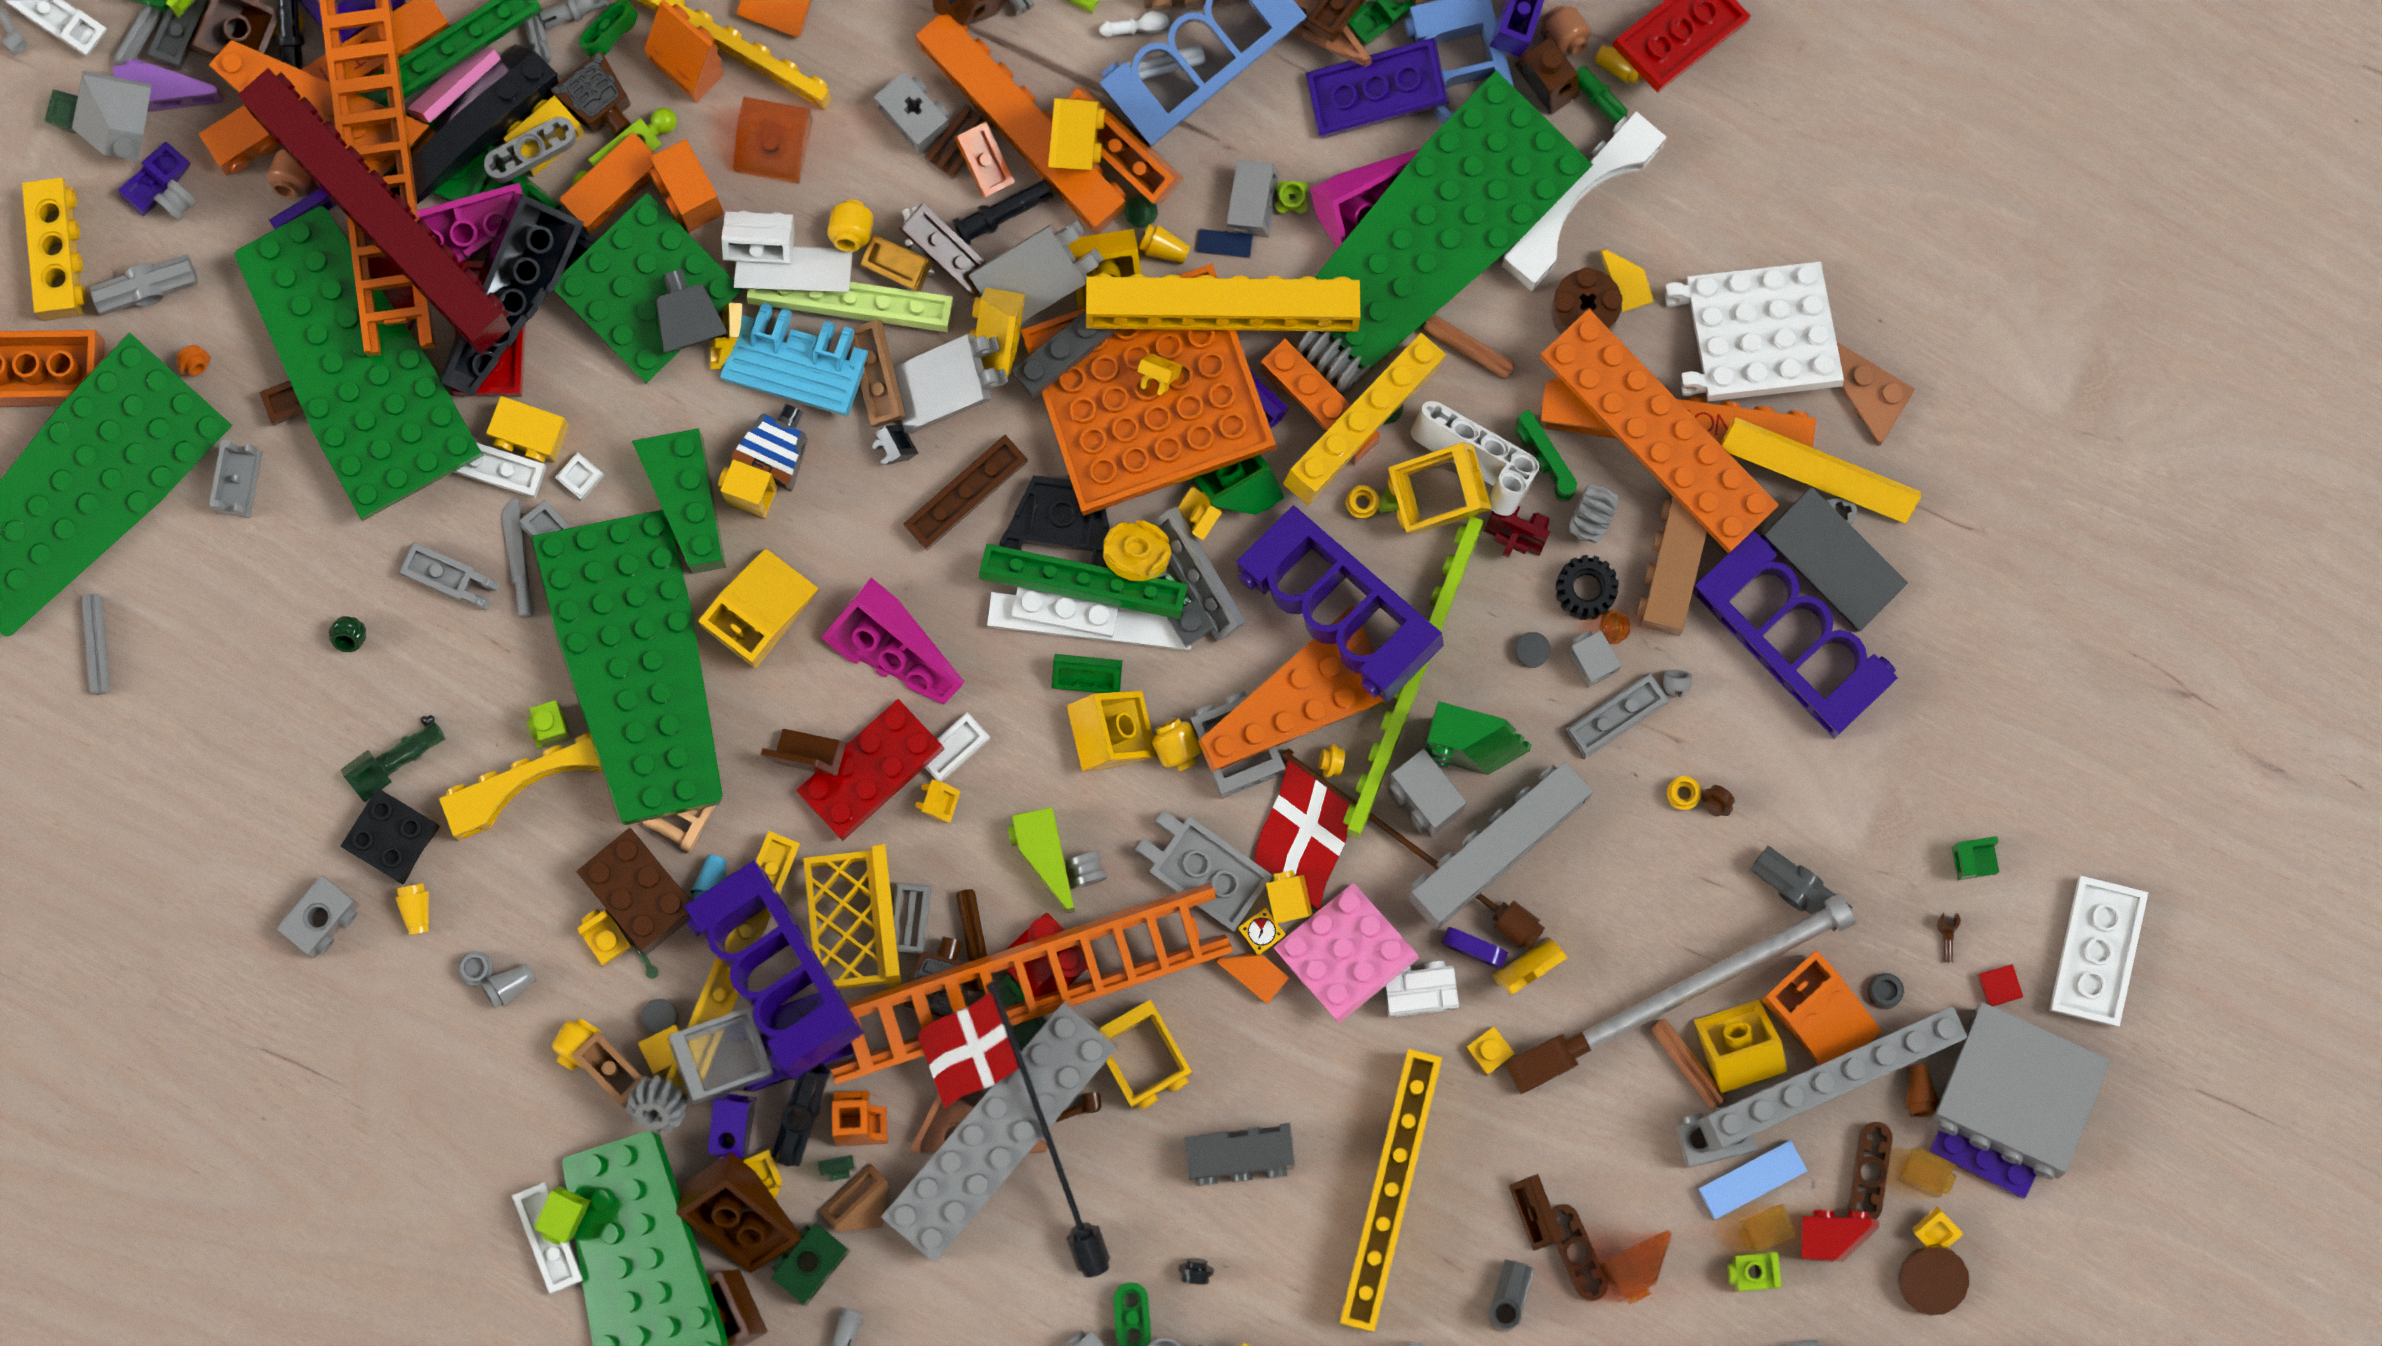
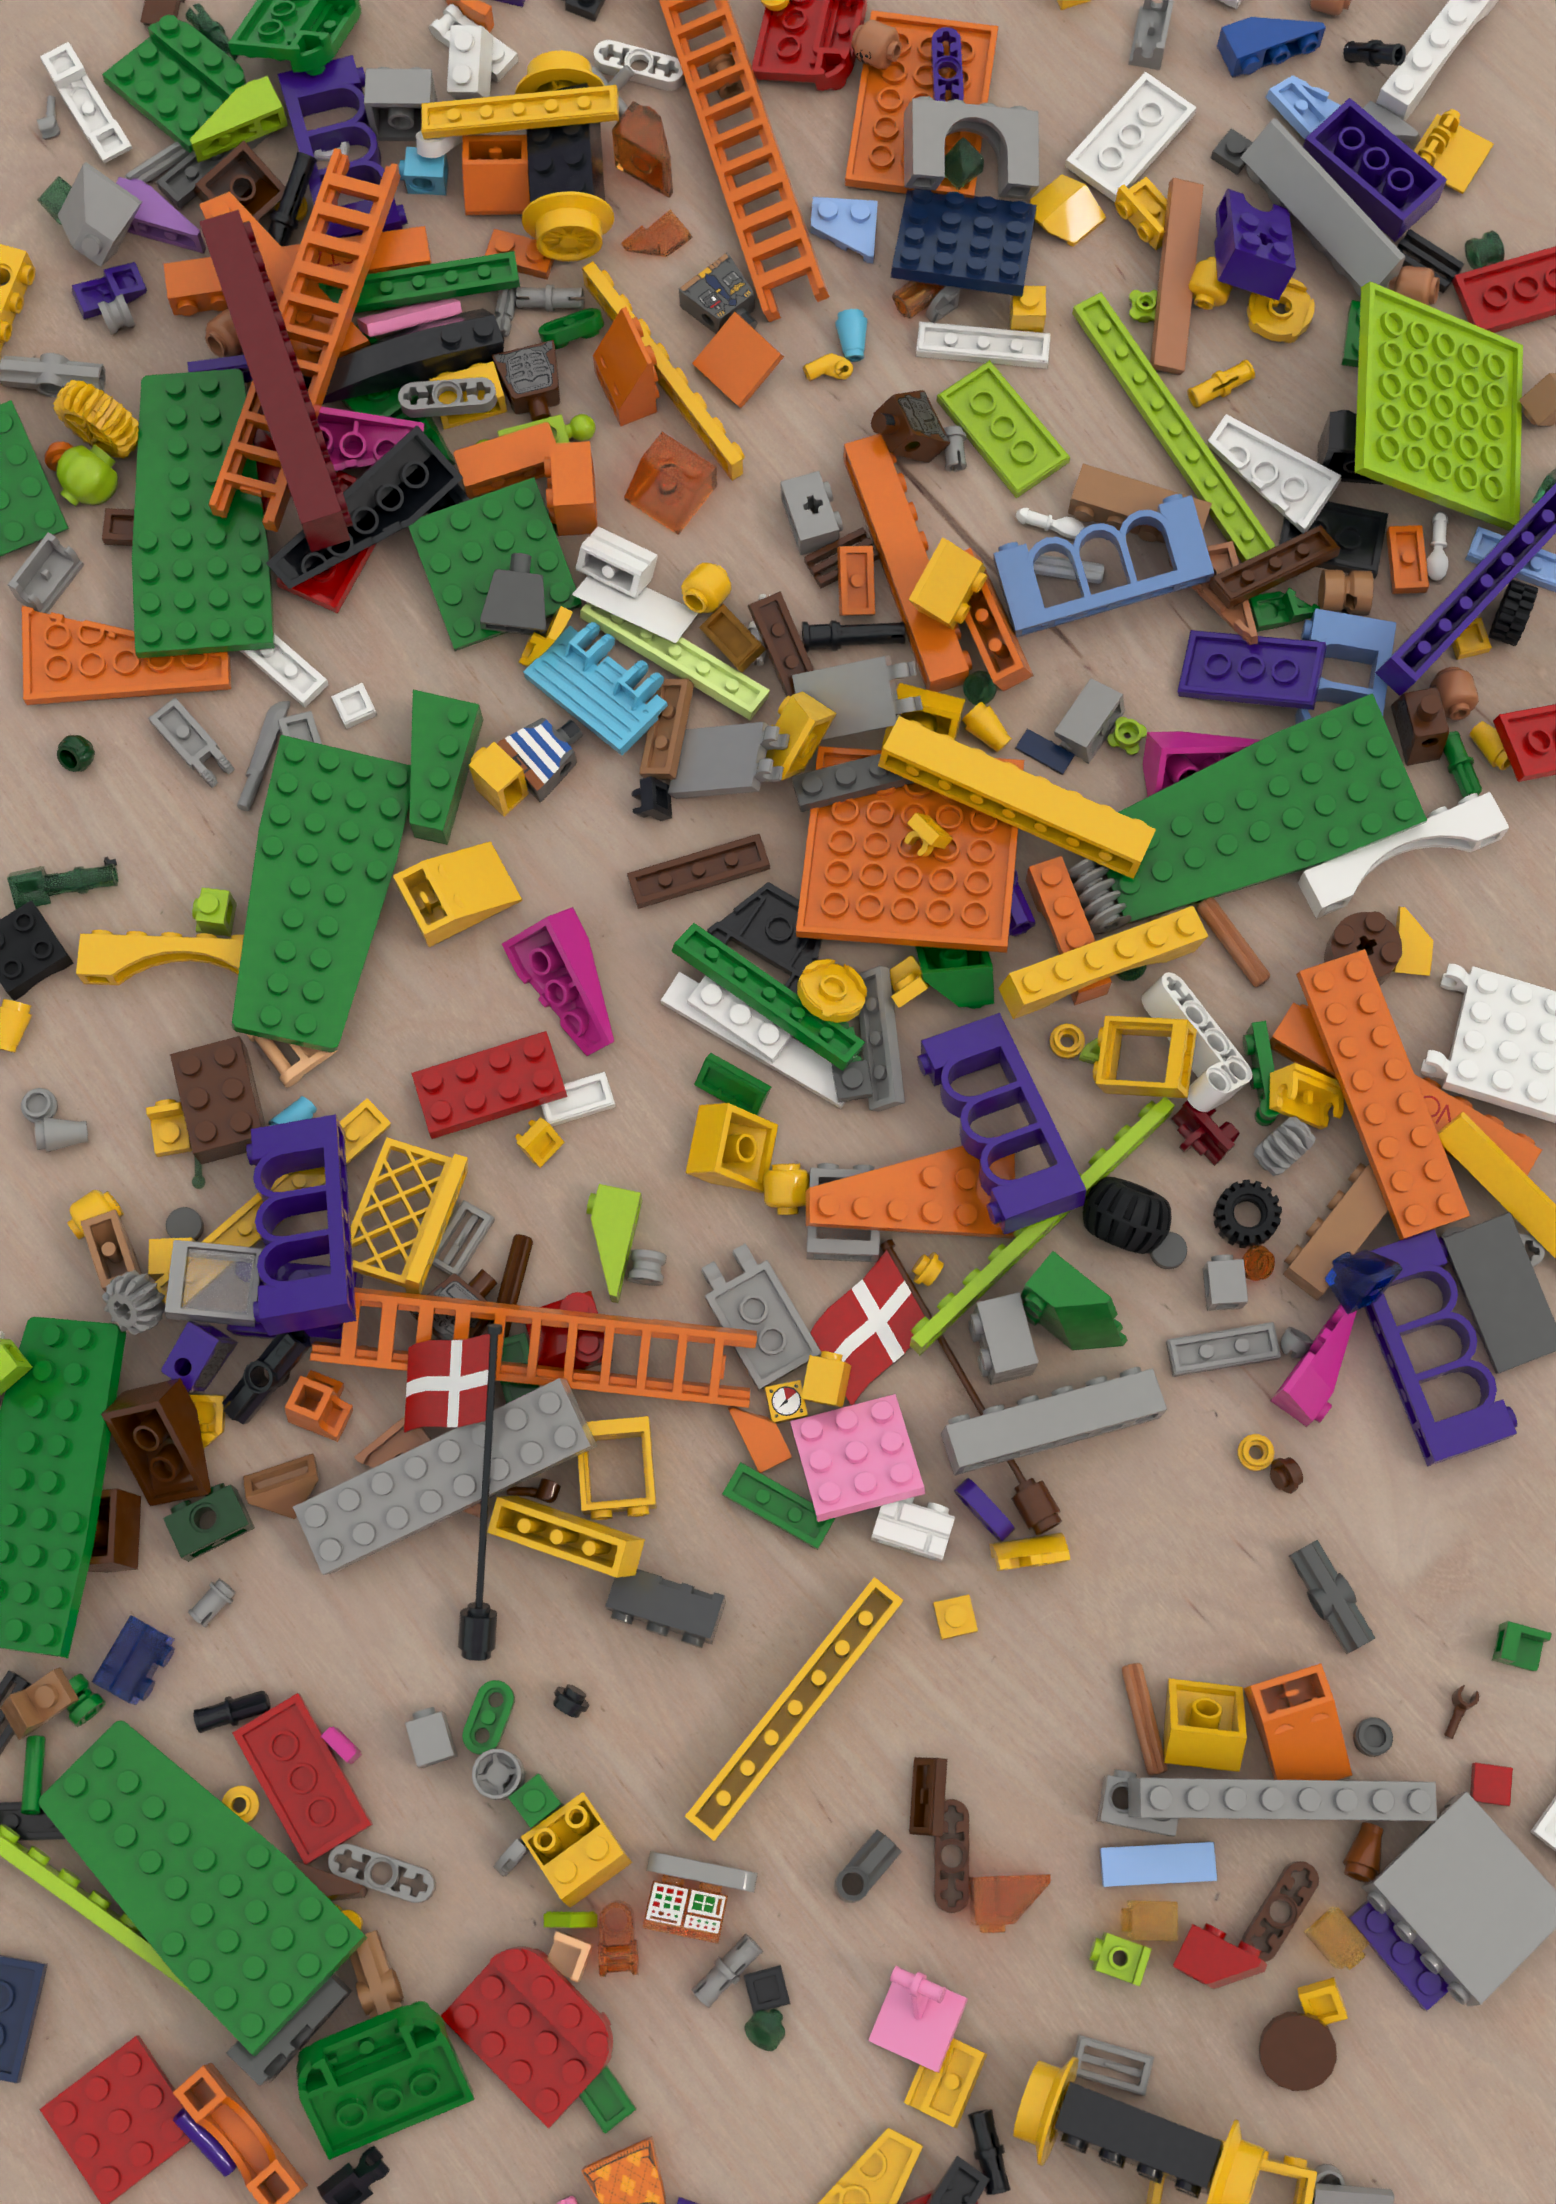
camera: 25 degrees right, 5 degrees down
(213, 311) = (97, 418): none -> yellow gear
(226, 368) = (86, 475): none -> lime plant
(323, 539) = (98, 661): none -> orange wing
(527, 430) = (326, 643): yellow brick -> none
(807, 752) = (437, 1042): reddish brown panel -> none
(837, 1168) = (278, 1442): clear green plate -> none
(1128, 1134) = (566, 1536): none -> yellow brick
(1295, 1025) = (777, 1505): none -> green plate
(1483, 635) = (1127, 1215): none -> black wheel
(1560, 1055) = (1020, 1652): flat silver piece -> none
(1592, 460) = (1305, 1094): none -> yellow hinge
(1705, 704) = (1316, 1373): none -> dark pink wedge
(1709, 604) = (1361, 1278): none -> clear blue slope

